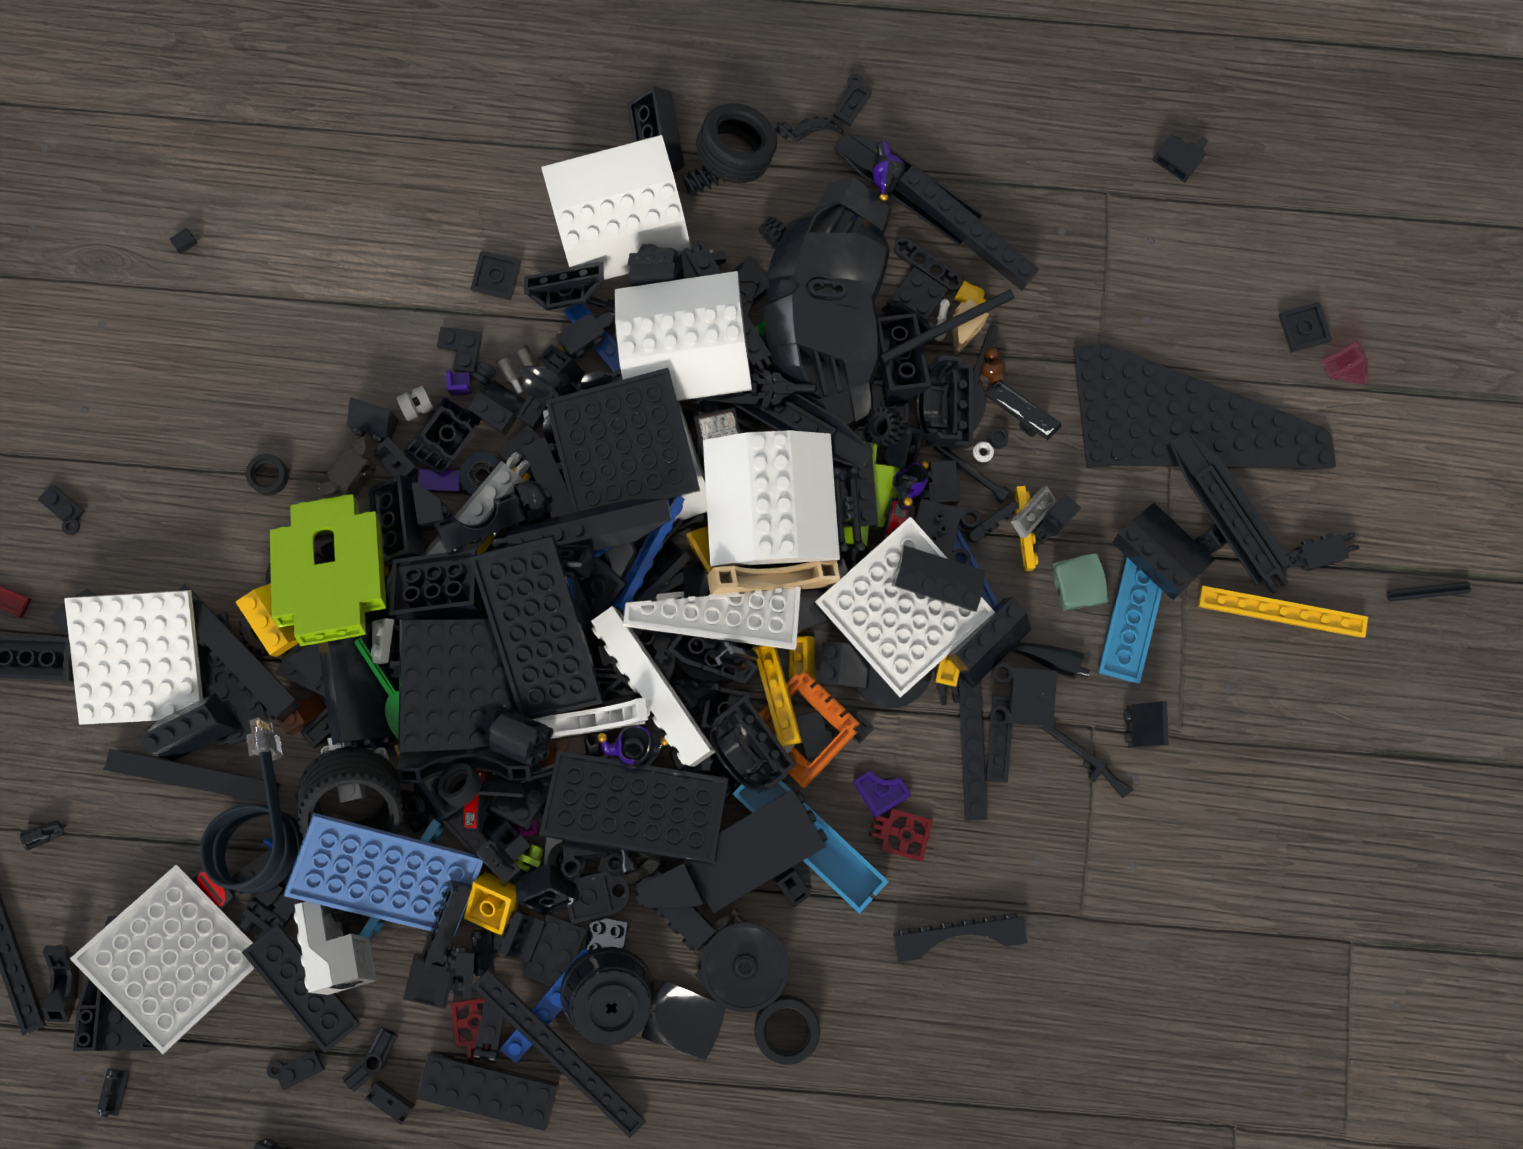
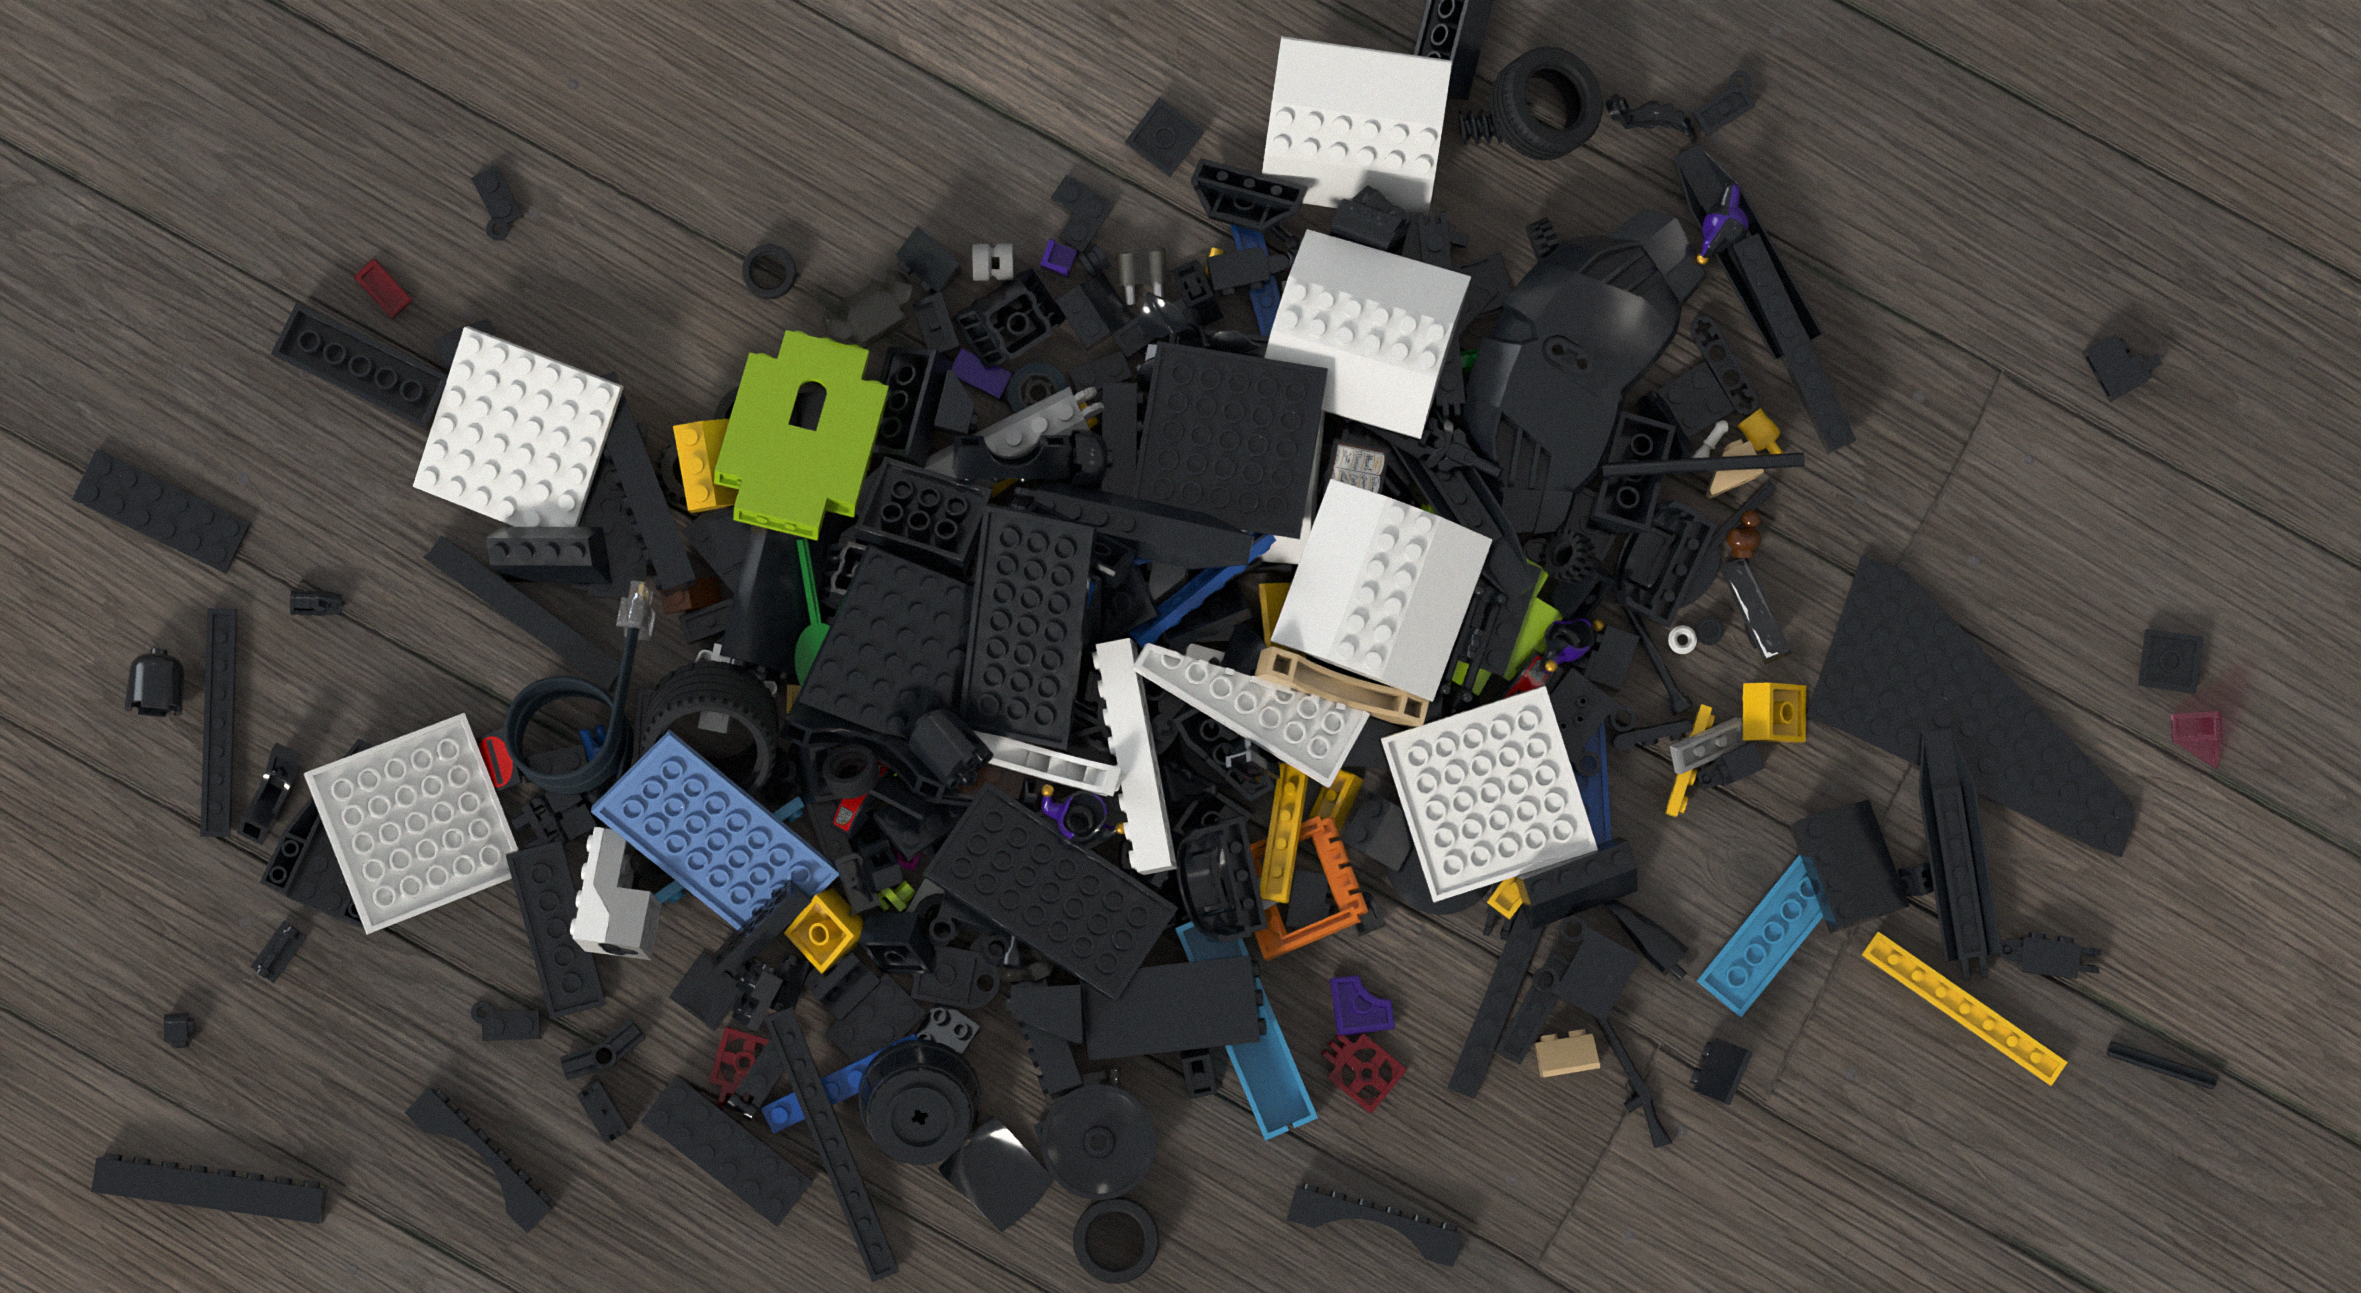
camera: 30 degrees right, 5 degrees up
(381, 640) = (831, 553): light grey wing -> none
(939, 579) = (1545, 779): black slope -> none
(1036, 761) = (1566, 1054): none -> tan slope
(1065, 472) = (1774, 712): none -> yellow slope
(1080, 582) = (1725, 859): sand green piece -> none

